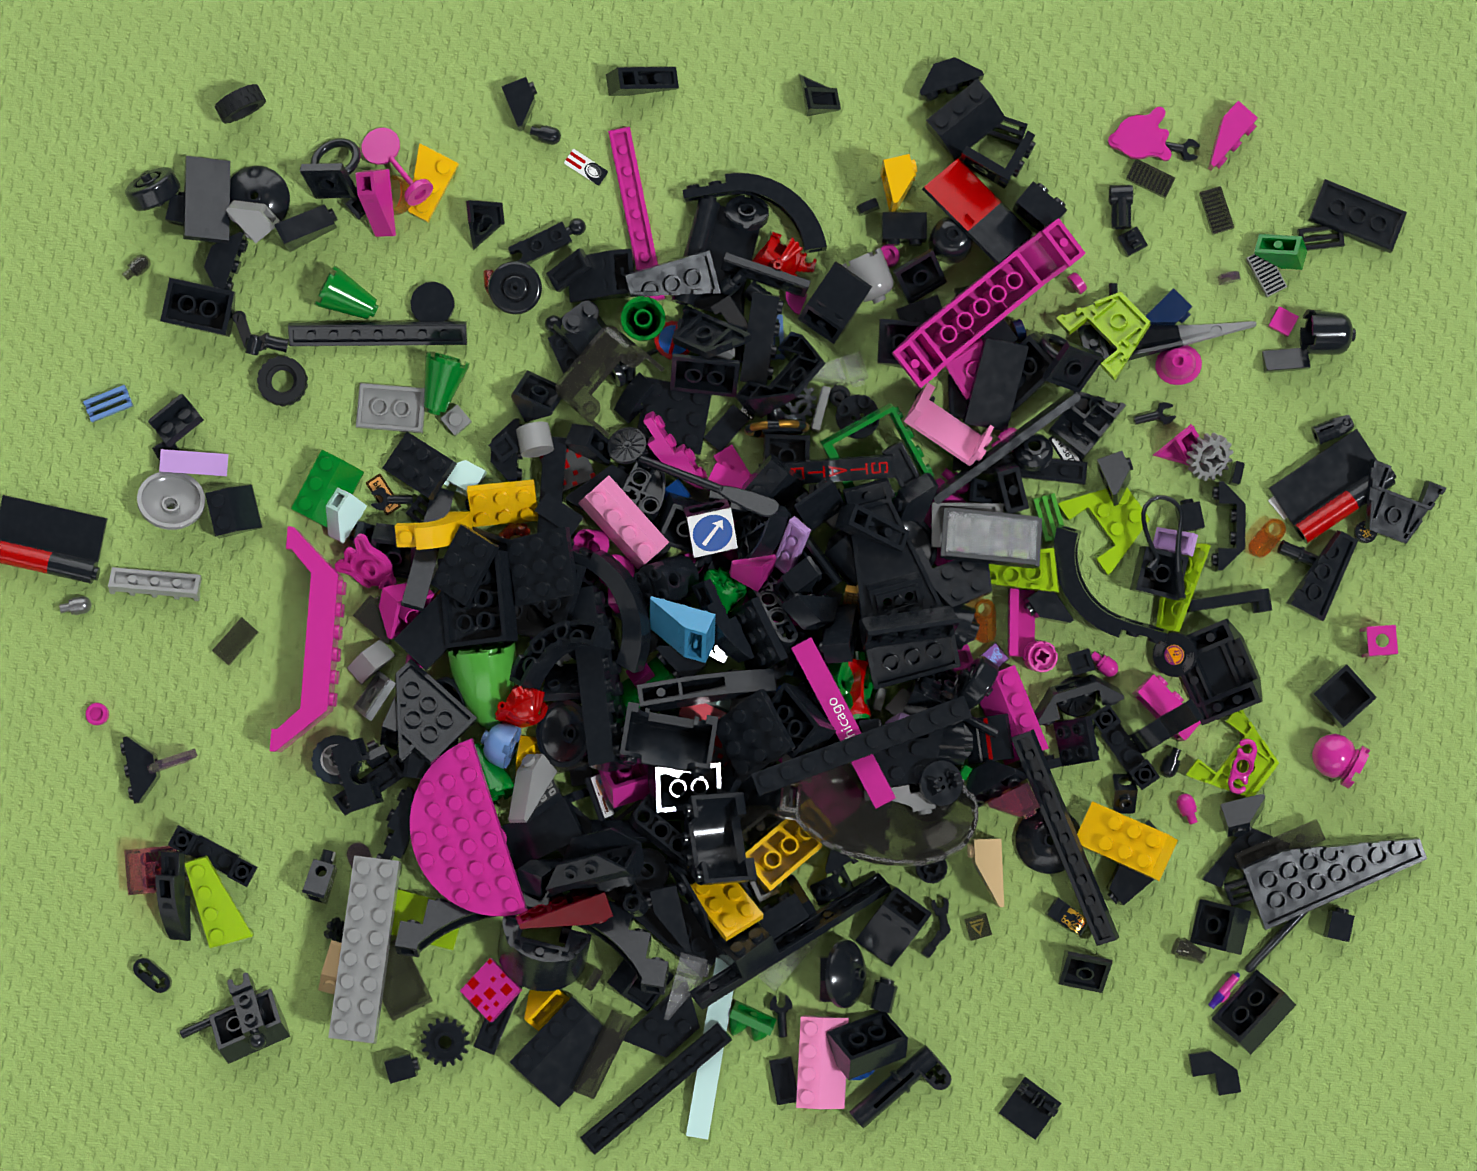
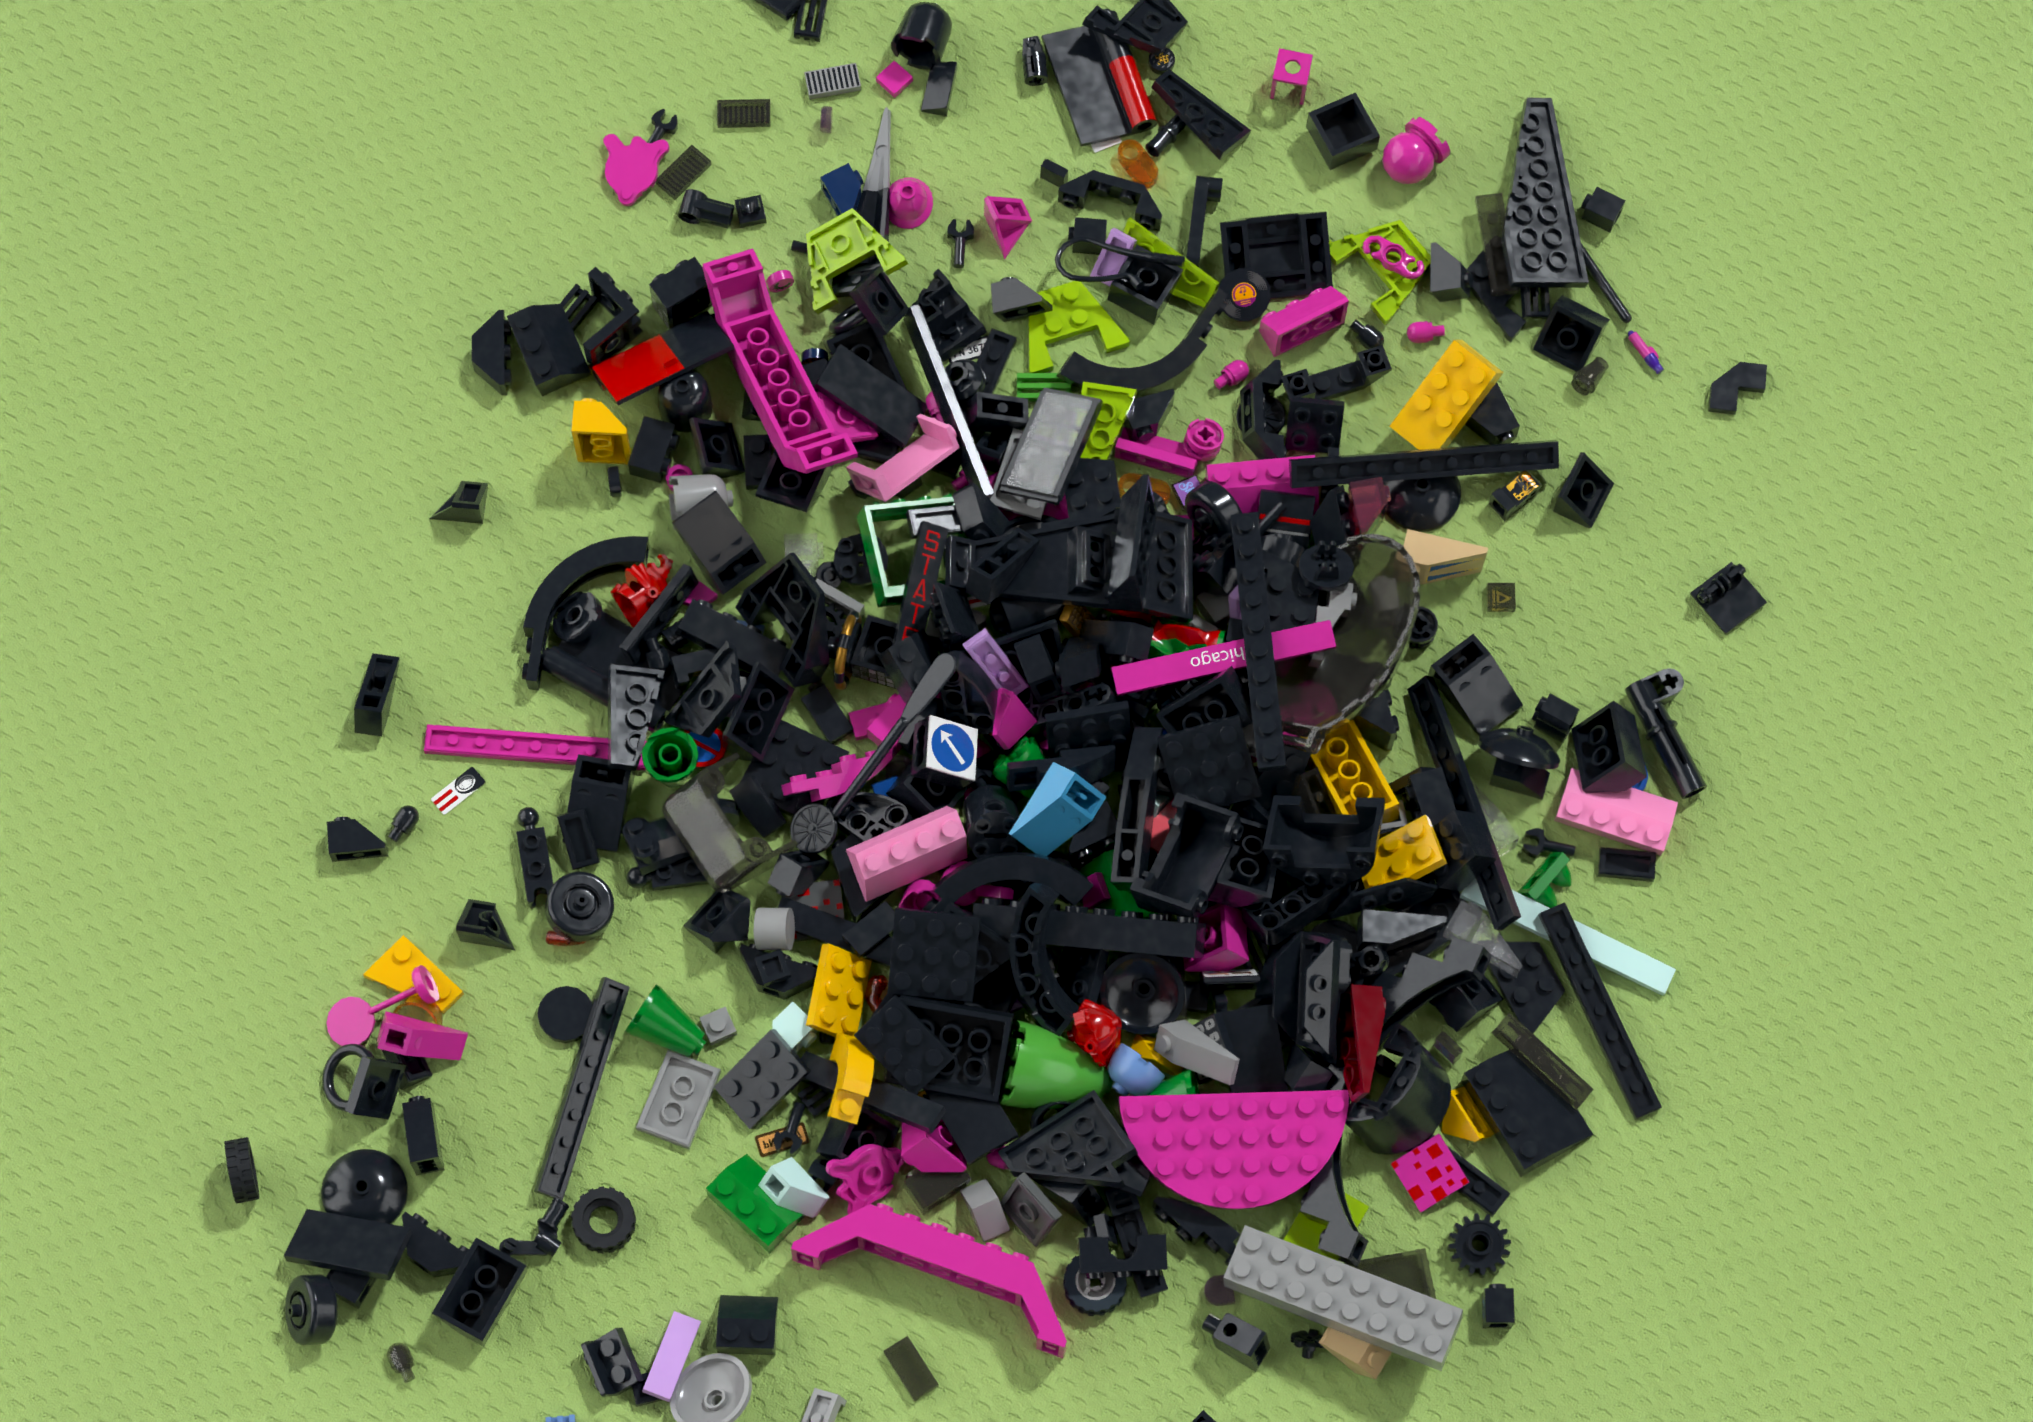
camera: 75 degrees left, 15 degrees down
(253, 218) = (390, 1192): light grey slope -> none
(346, 296) = (522, 1112): green cone -> none
(830, 888) = (1411, 747): black bracket -> none
(944, 927) = (1494, 634): black piece -> none
(1080, 662) = (1223, 396): black tile -> none
(1124, 795) = (1391, 392): black bracket -> none
(1166, 726) = (1327, 315): black piece -> none
(1208, 458) = (1027, 193): light grey gear -> none
(1232, 127) = (657, 71): dark pink slope -> none
(1253, 1011) = (1678, 325): black slope -> none
(1282, 250) = (813, 54): green slope -> none

